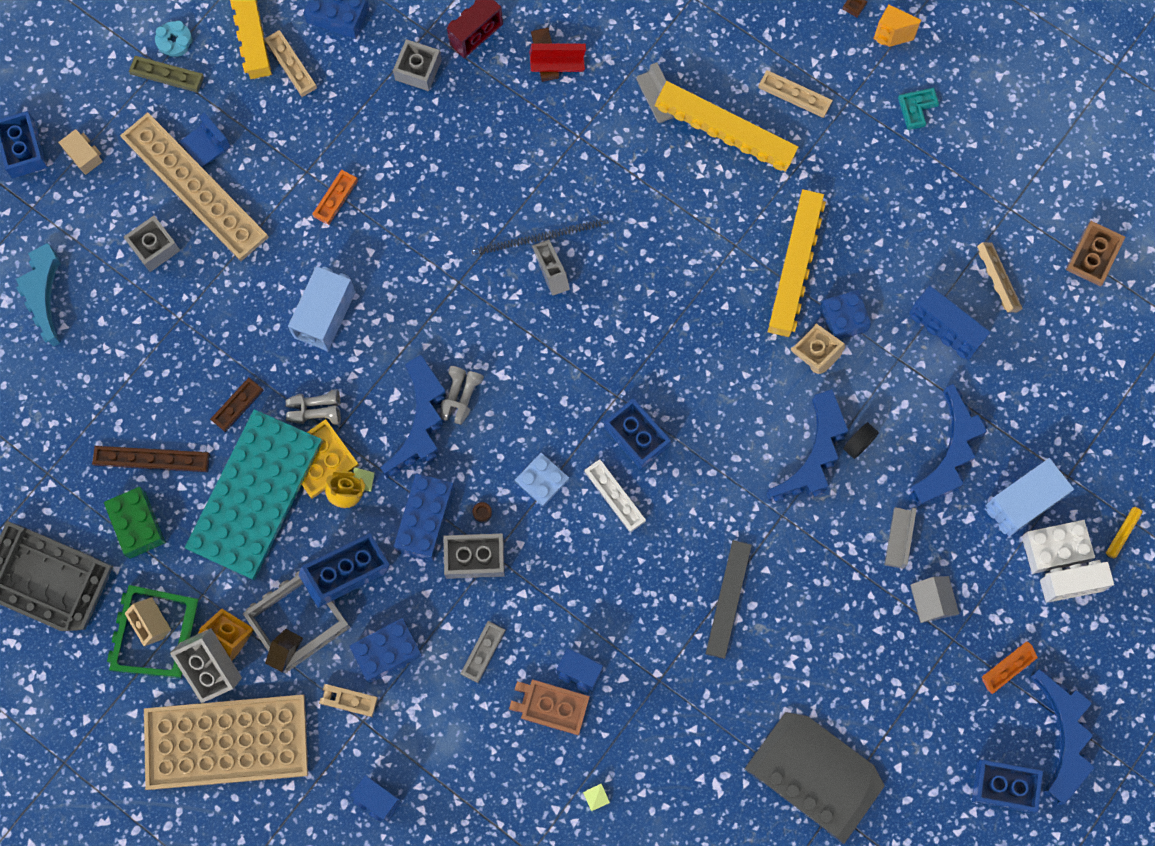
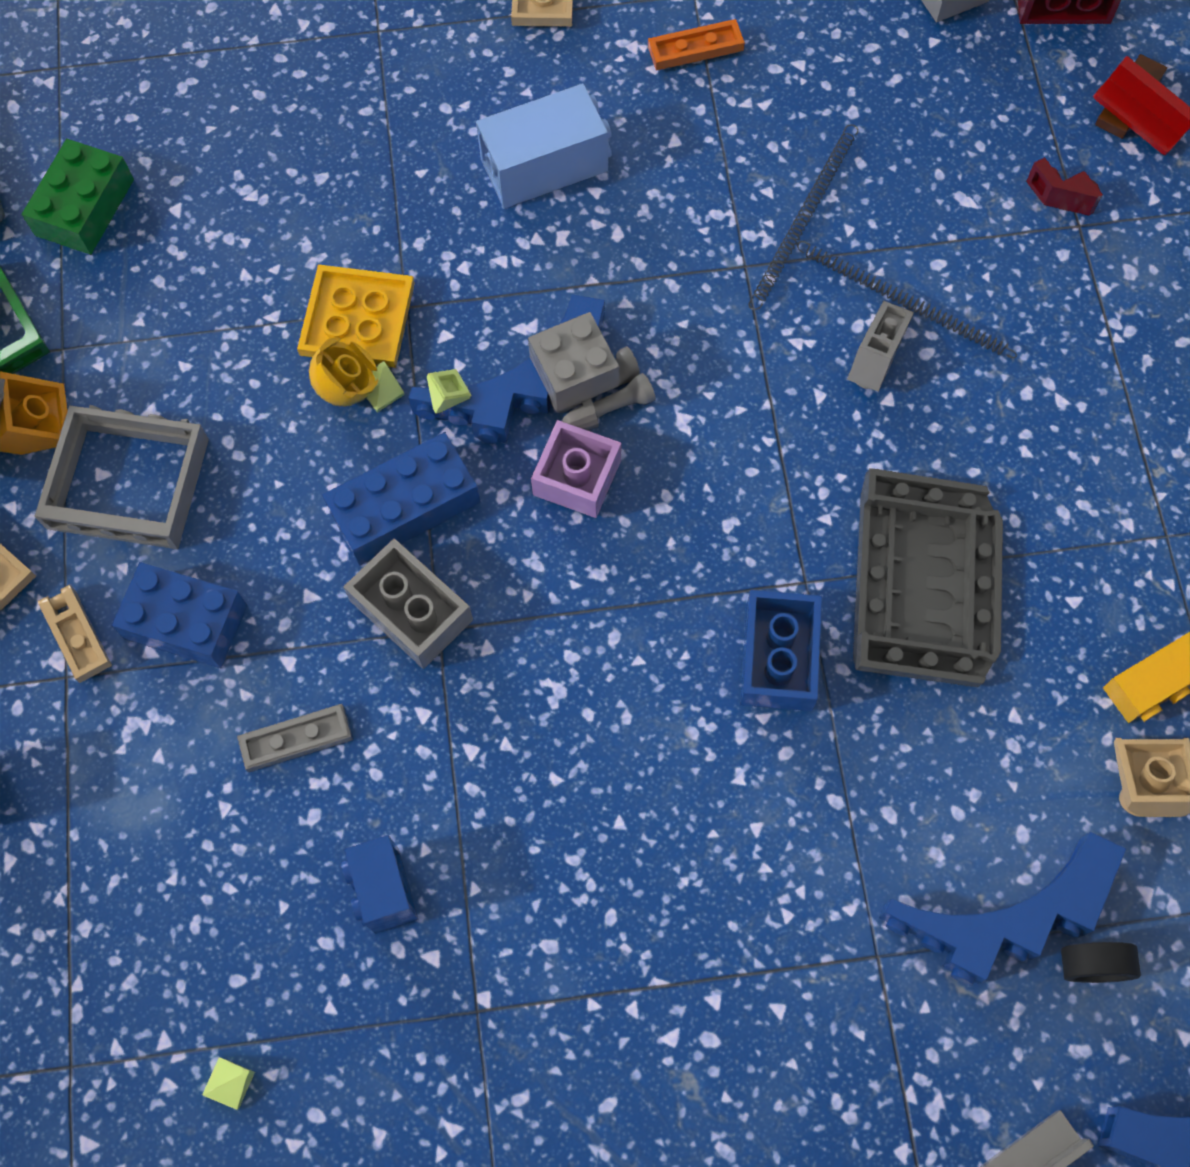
camera: 45 degrees right, 5 degrees down
(151, 458) = (179, 149): reddish brown tile -> none
(237, 404) = (335, 174): reddish brown tile -> none
(254, 494) = (238, 287): teal plate -> none
(283, 649) = (61, 488): dark brown slope -> none
(299, 401) = (429, 277): light grey piece -> none
(343, 570) = (232, 464): blue brick -> none
(397, 454) = (446, 389): none -> yellowish green slope
(439, 393) = (573, 361): none -> light grey brick
(461, 237) = (771, 275): none -> dark grey piece
(482, 512) = (481, 562): reddish brown tile -> none
(483, 437) = (576, 468): none -> lavender brick
(542, 479) = (598, 594): light blue plate -> none
(551, 706) = (301, 897): nougat tile -> none
(566, 124) = (1074, 194): none -> dark red slope
(615, 495) = (670, 705): white plate -> none
(663, 350) = (927, 579): none -> dark grey slope
(728, 599) = (683, 997): dark grey tile -> none

